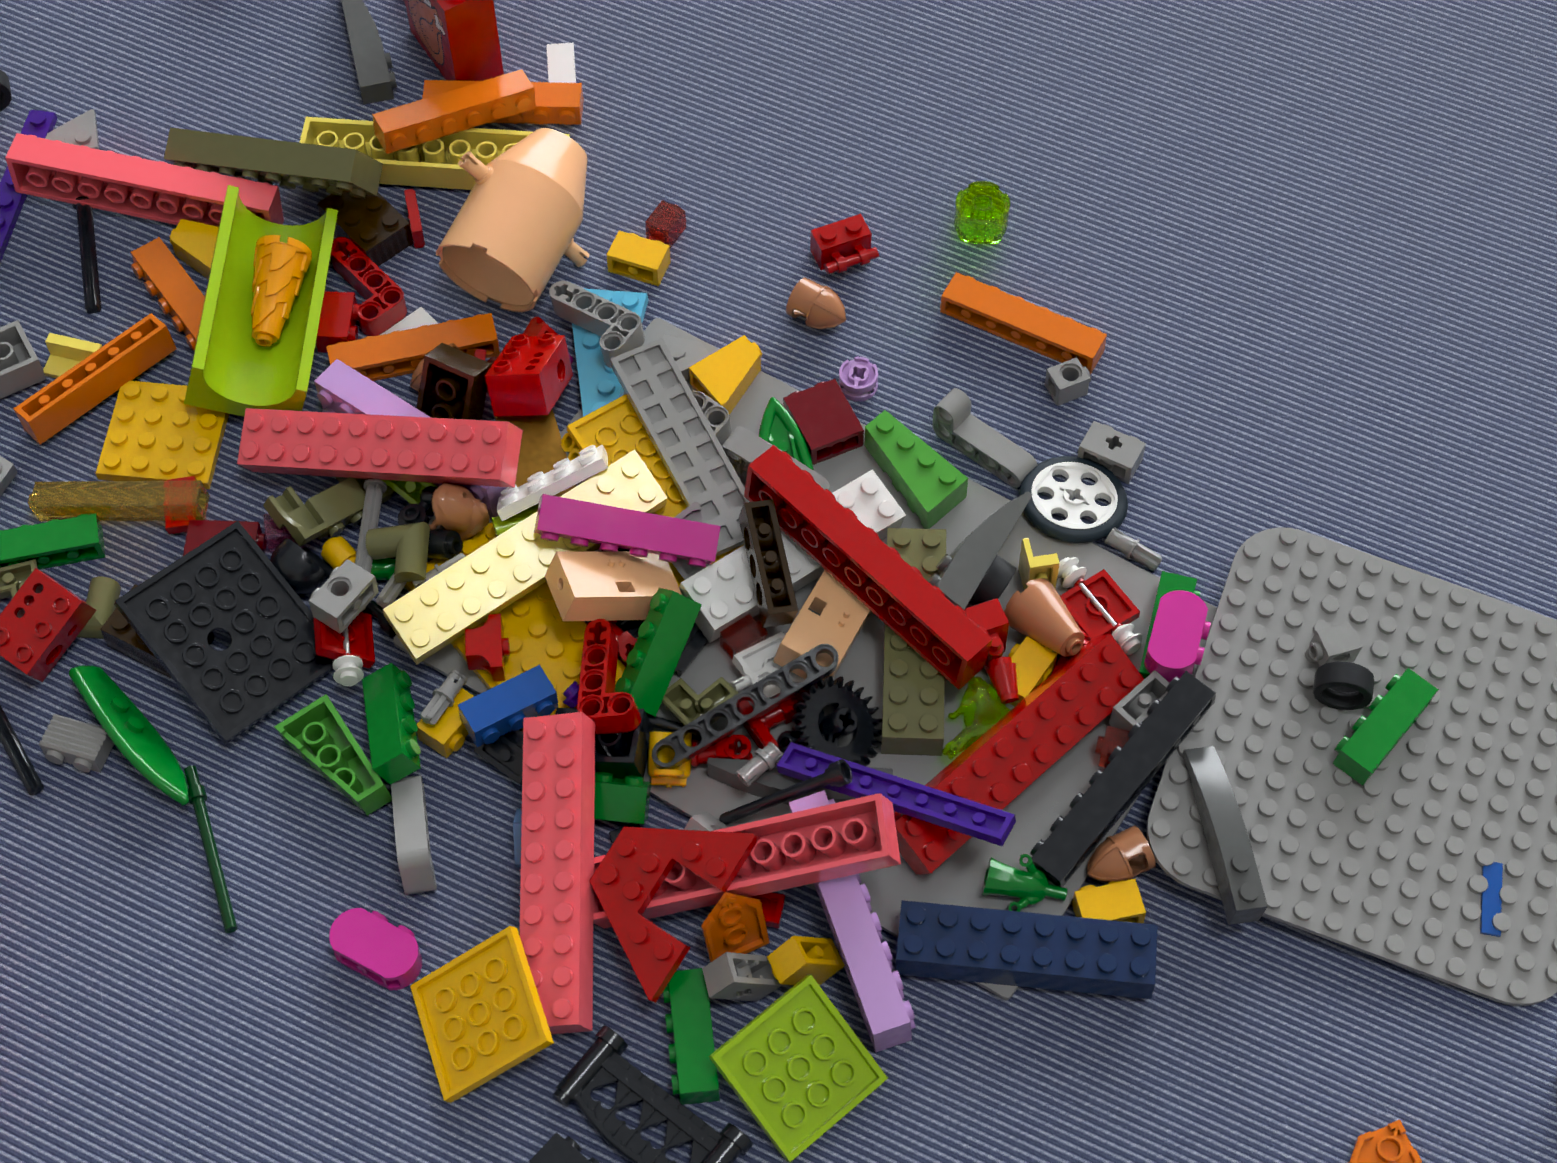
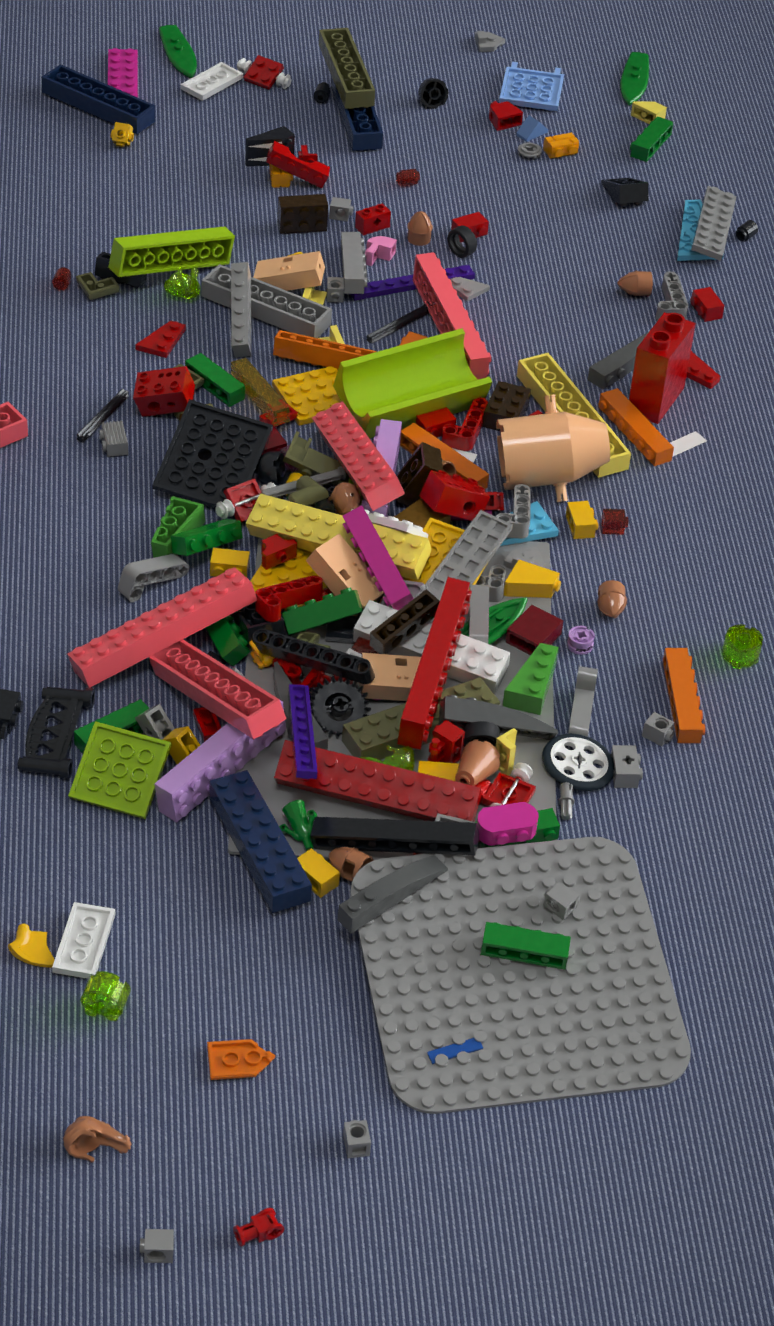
camera: 55 degrees right, 15 degrees down
(131, 731) = (134, 452): green piece -> none
(197, 798) = (118, 493): dark green bar -> none
(276, 162) = (503, 350): olive brick -> none
(276, 283) = (427, 379): light orange cone -> none
(337, 610) = (260, 481): light grey brick -> none
(376, 948) = (79, 590): dark pink brick -> none
(443, 698) = (234, 547): light grey axle -> none
(454, 111) = (600, 401): orange brick -> none
(481, 1014) = (65, 636): yellow plate -> none
(506, 705) = (257, 572): blue brick -> none
(635, 872) = (173, 653): red wing -> none
(734, 926) = (184, 708): orange tile -> none
(761, 762) = (285, 679): light grey pin -> none
(836, 774) = (293, 700): black piece -> none
(842, 244) = (666, 596): red brick -> none
(1004, 679) = (419, 759): red cone -> none
(1343, 685) = (532, 908): black tyre -> none

